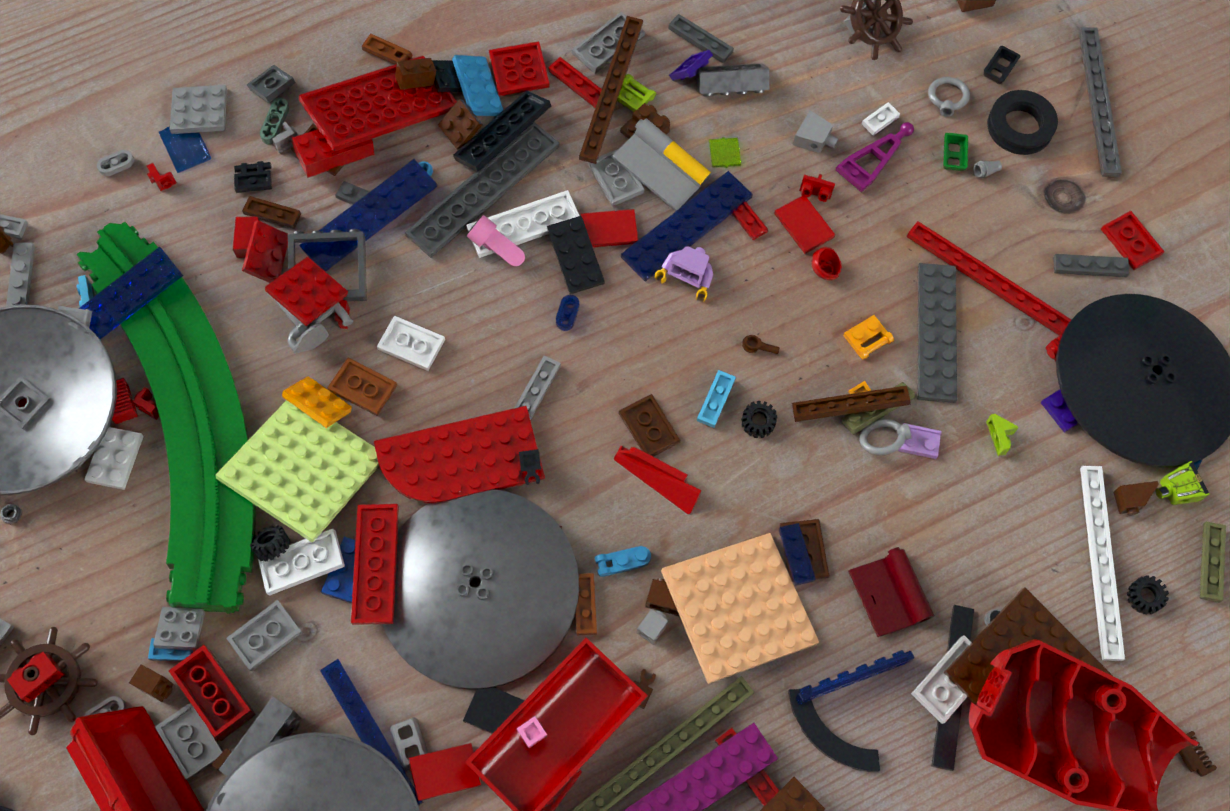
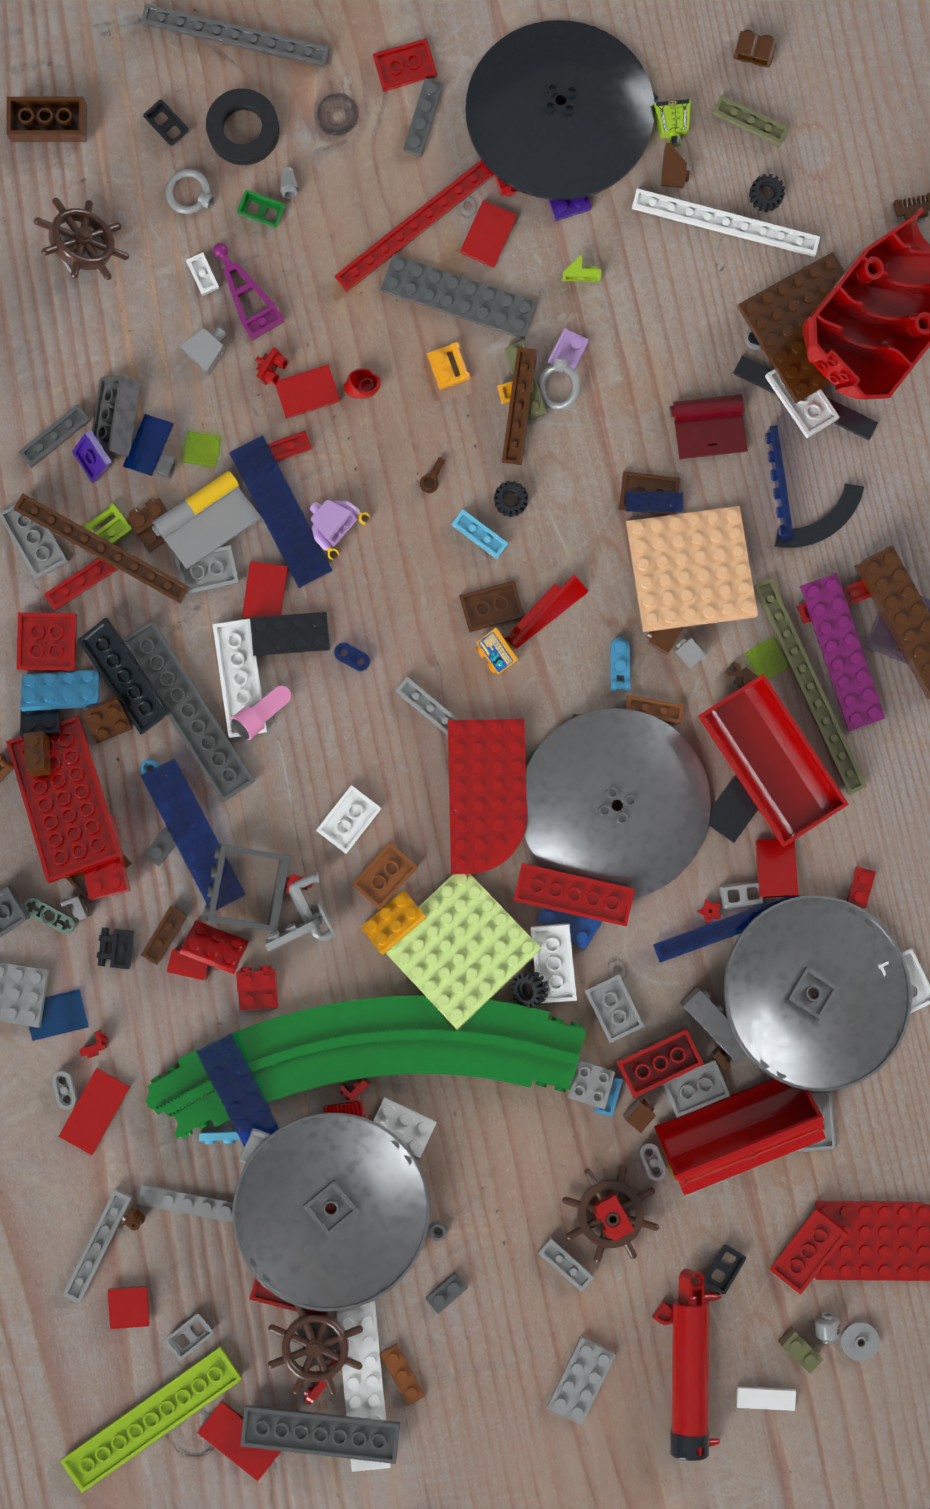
camera: 75 degrees left, 20 degrees up
(98, 191) = (94, 1111): none -> red tile
(234, 300) = (257, 988): none -> red plate
(306, 291) = (278, 911): red plate -> none
(389, 716) = (705, 911): none -> red plate
(530, 462) = (512, 729): black plate -> none
(531, 732) = (774, 782): bright pink plate -> none
(605, 437) = (496, 652): none -> slope
(667, 711) = (767, 659): none -> clear neon green piece
(700, 124) = (165, 466): none -> flat silver plate
(715, 106) = (148, 444): none -> clear blue piece
(1005, 344) = (488, 234): none -> red tile

